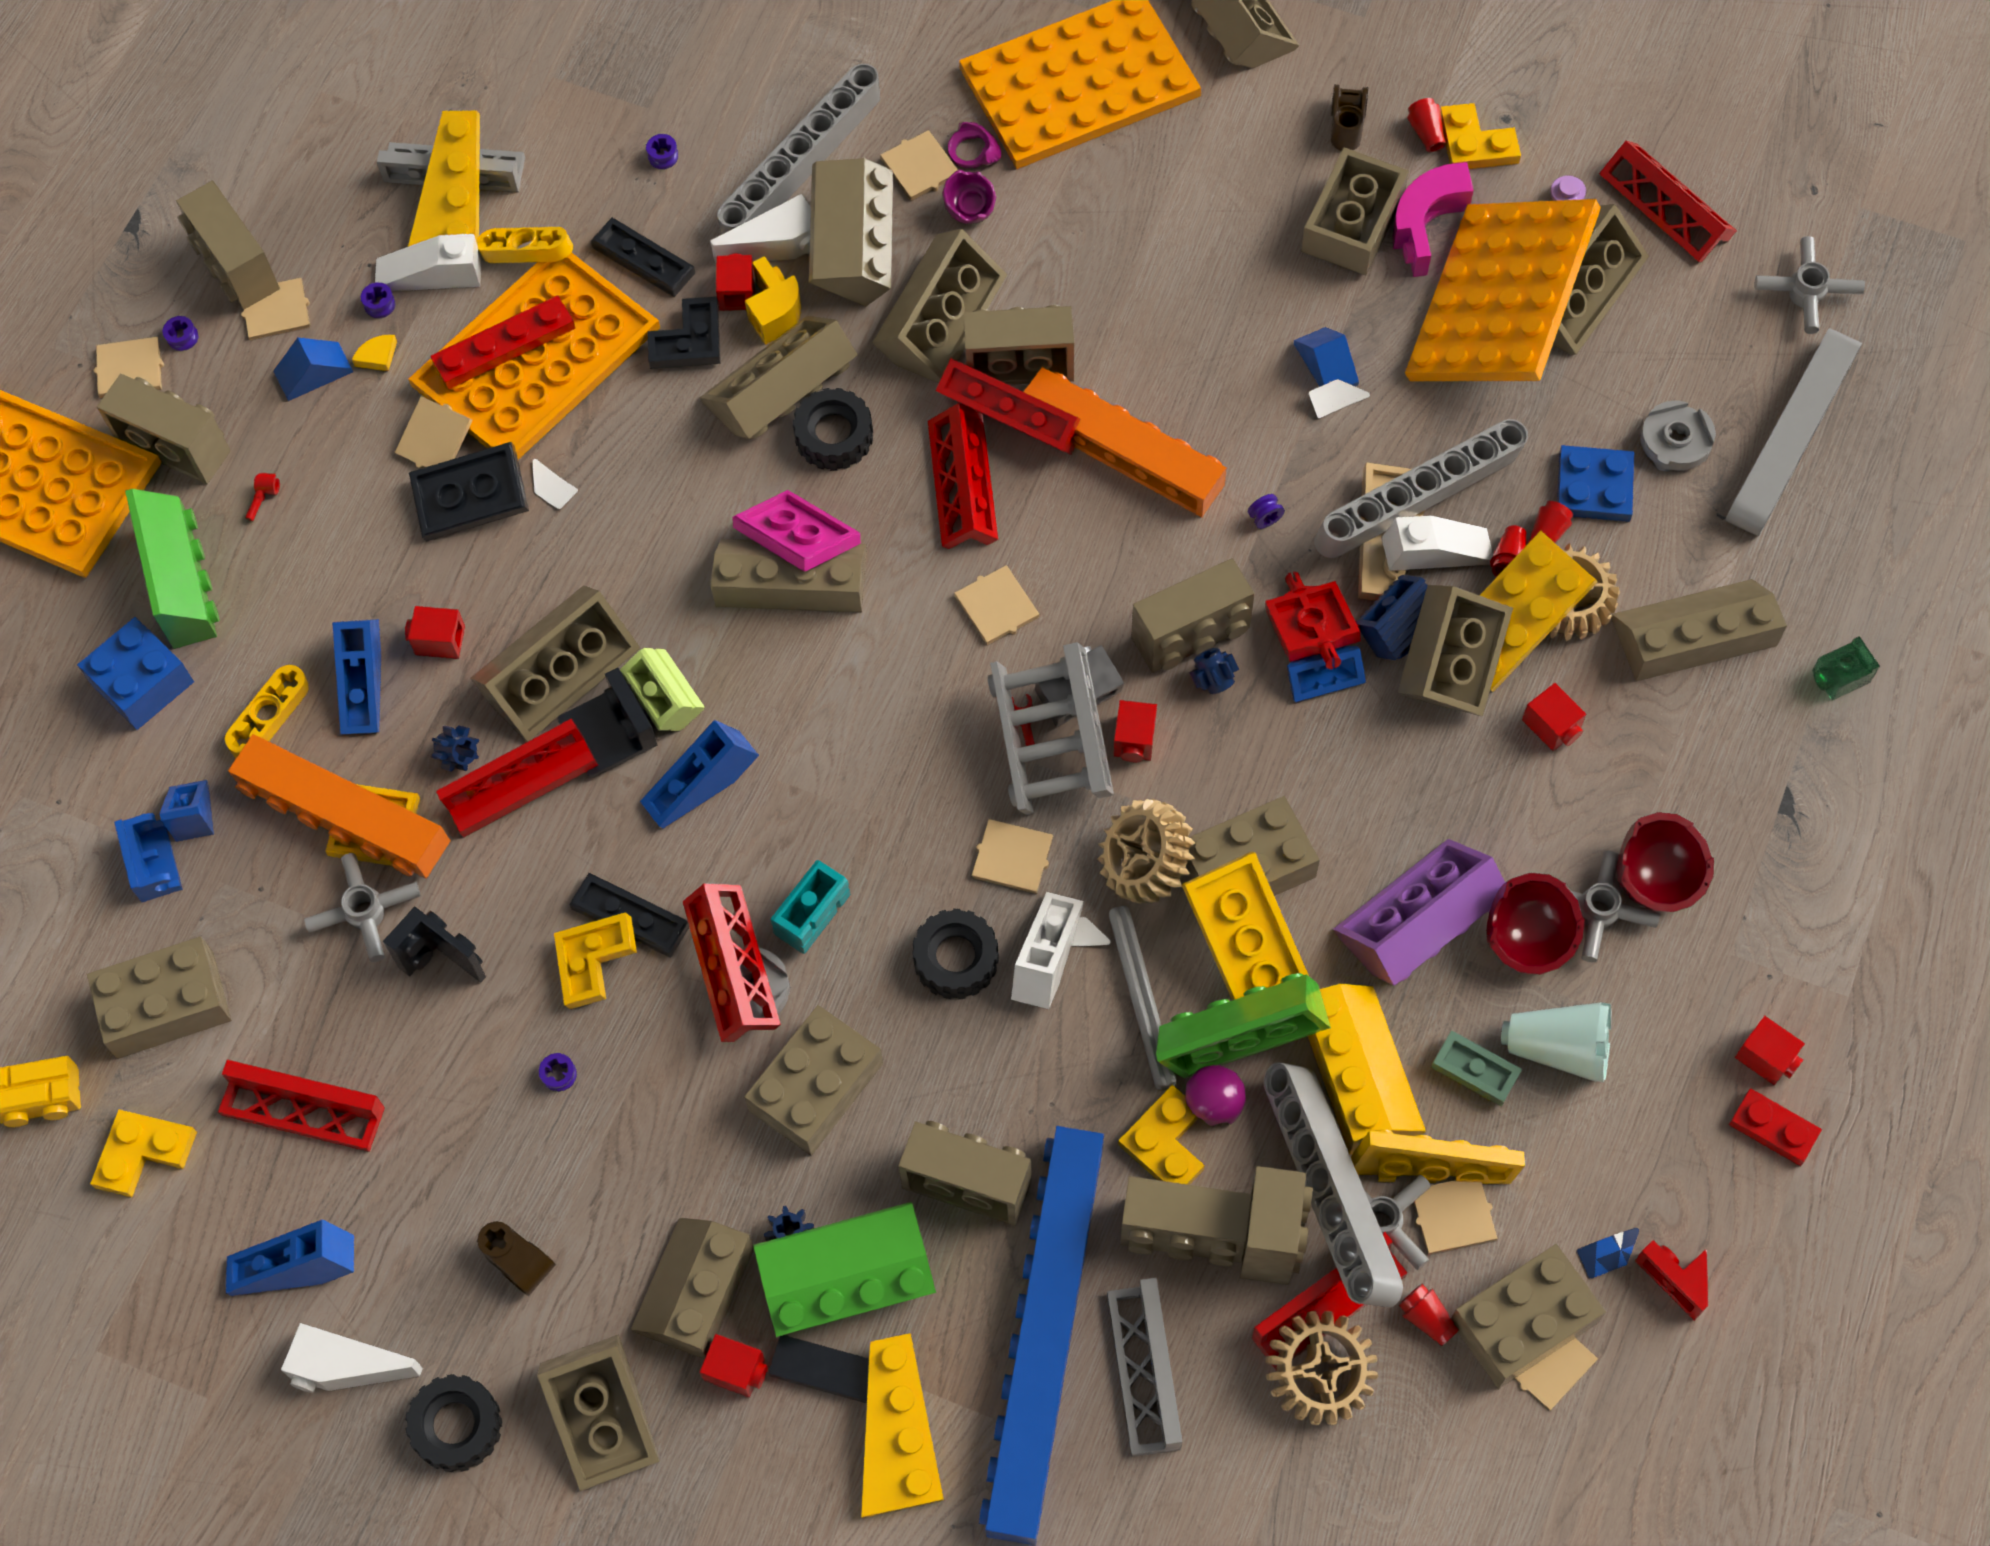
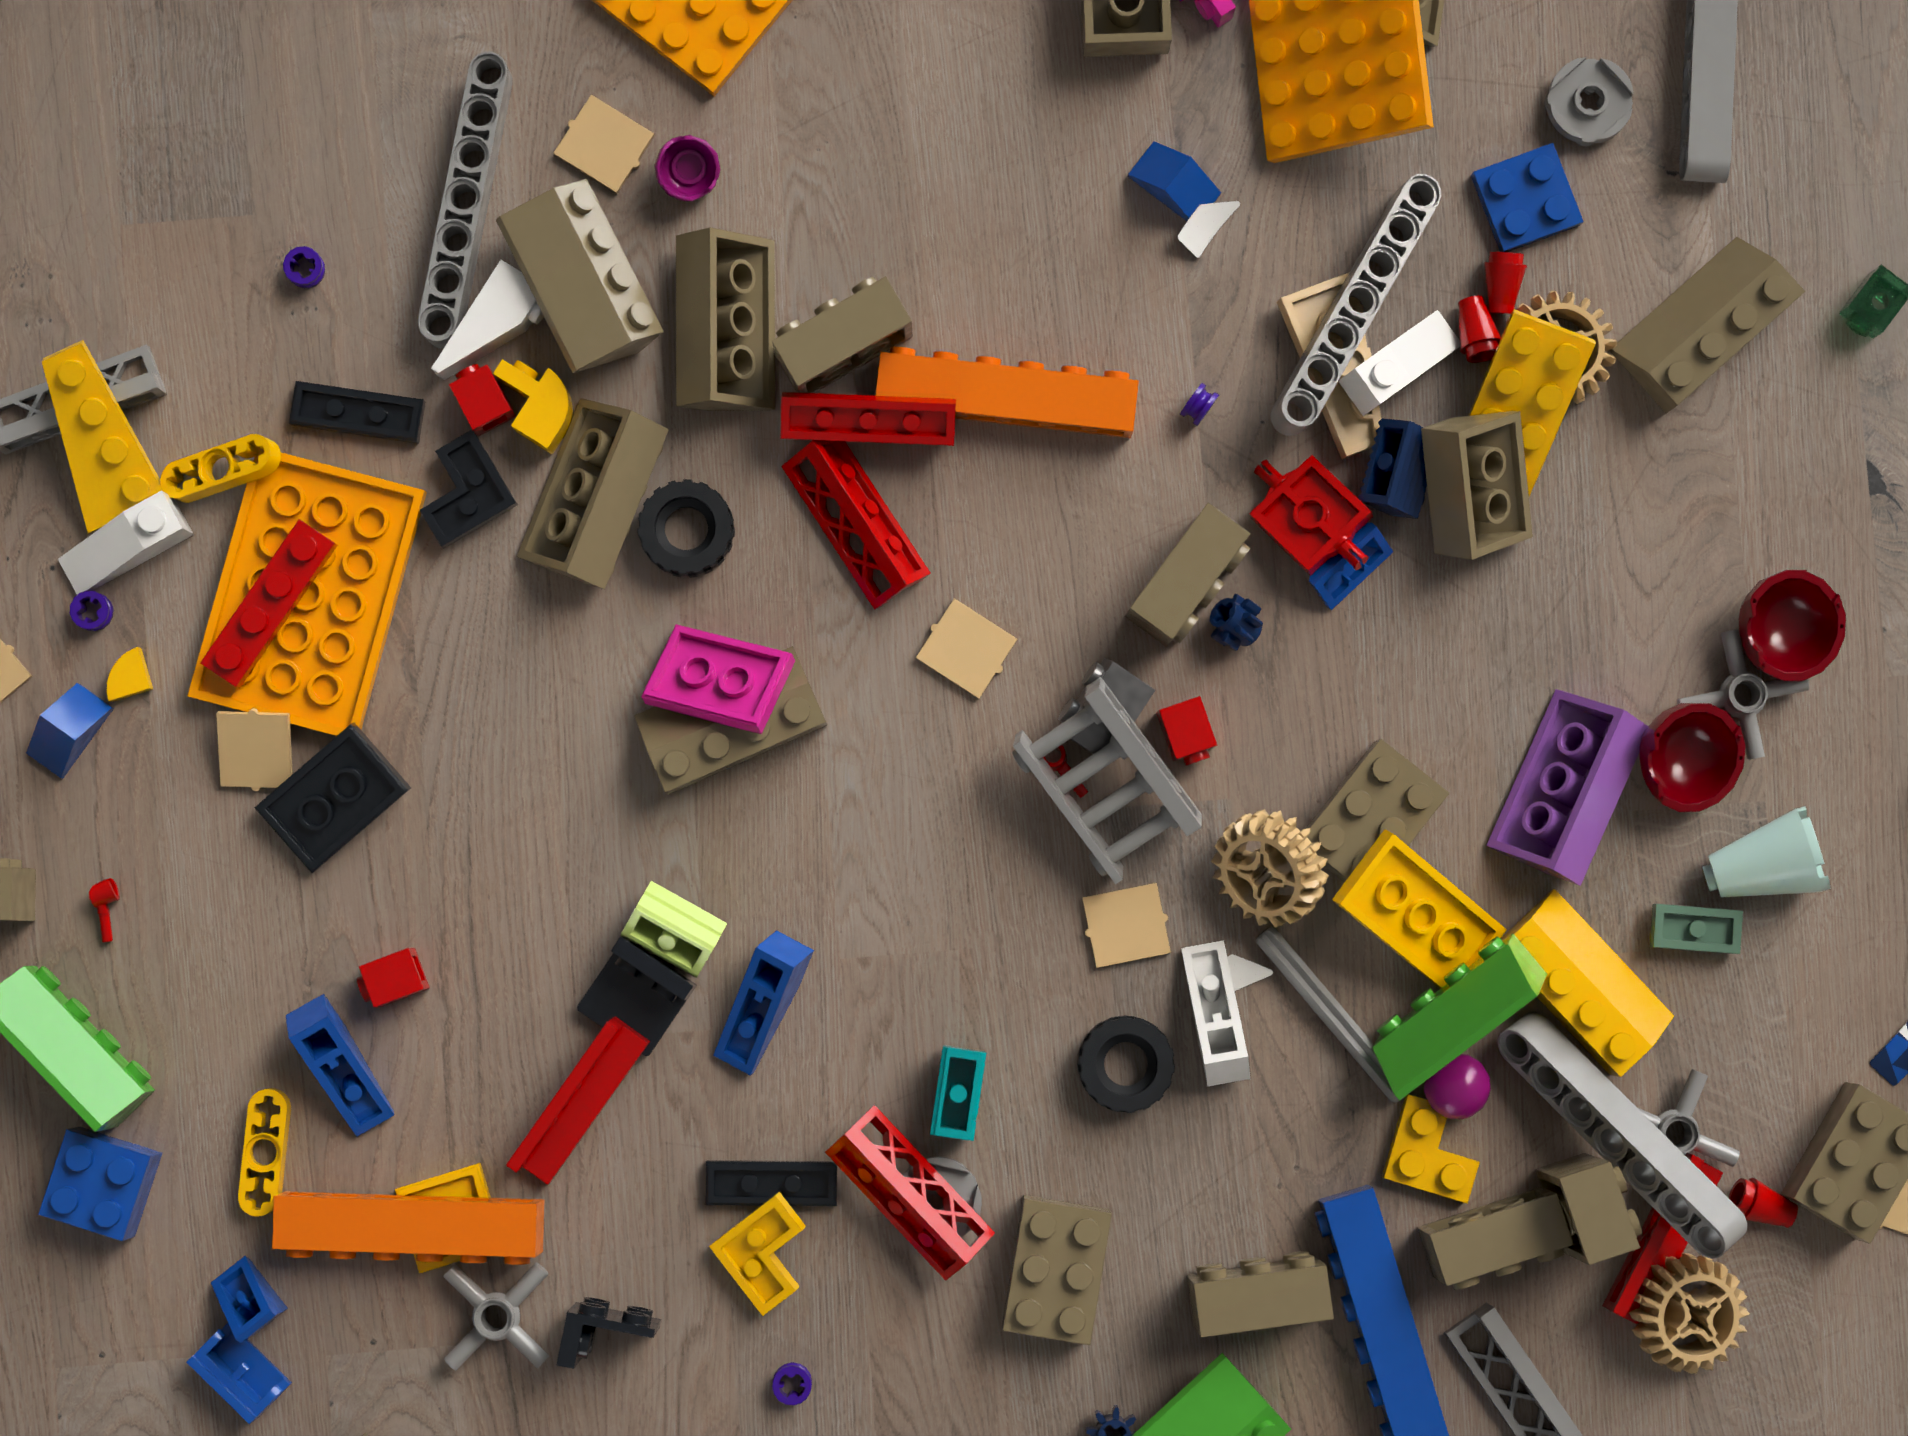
camera: 35 degrees left, 20 degrees up
(455, 748) = (491, 1098): dark blue gear -> none
(550, 486) = (414, 740): white sticker -> none
(556, 662) = (540, 949): dark tan slope -> none
(990, 154) = (642, 71): magenta piece -> none
(1397, 1155) = (1690, 1053): yellow wing -> none
(1454, 1216) = (1740, 1087): tan piece -> none
(1554, 717) = (1608, 504): red brick -> none

